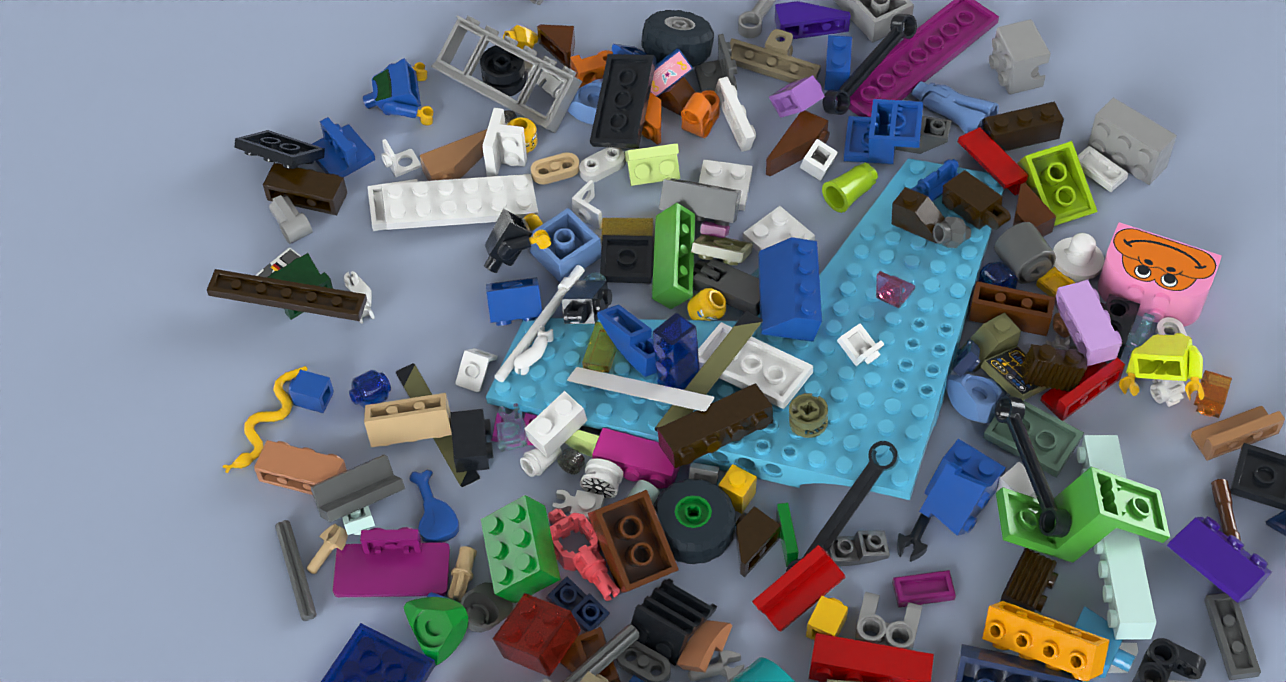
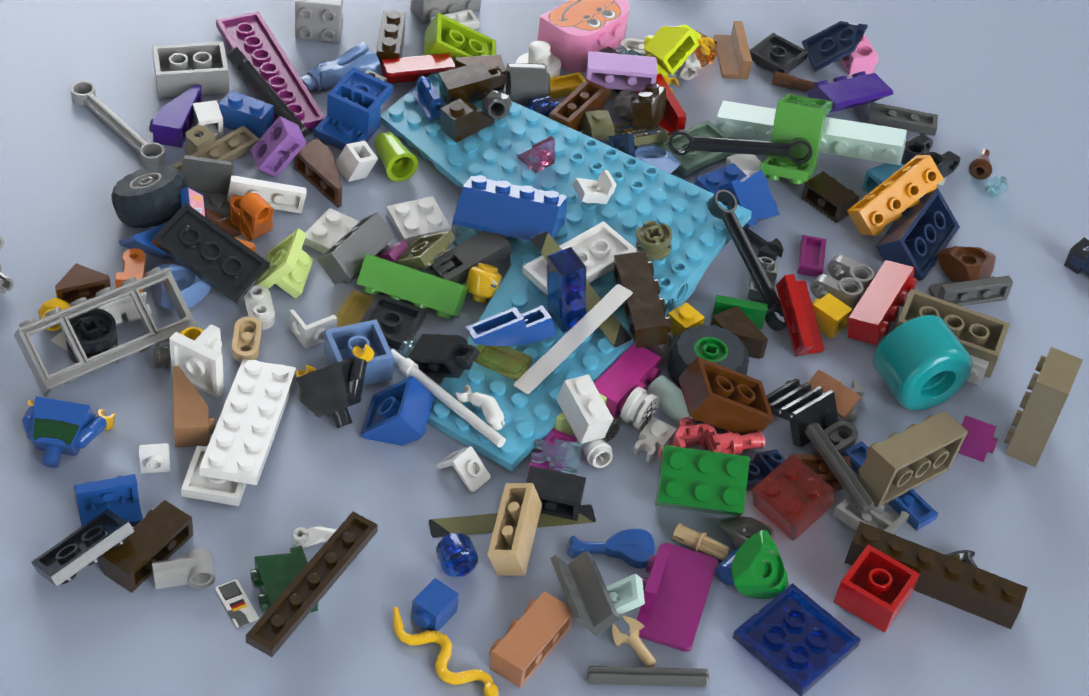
camera: 80 degrees left, 10 degrees down
(814, 40) = (209, 116): none -> white brick

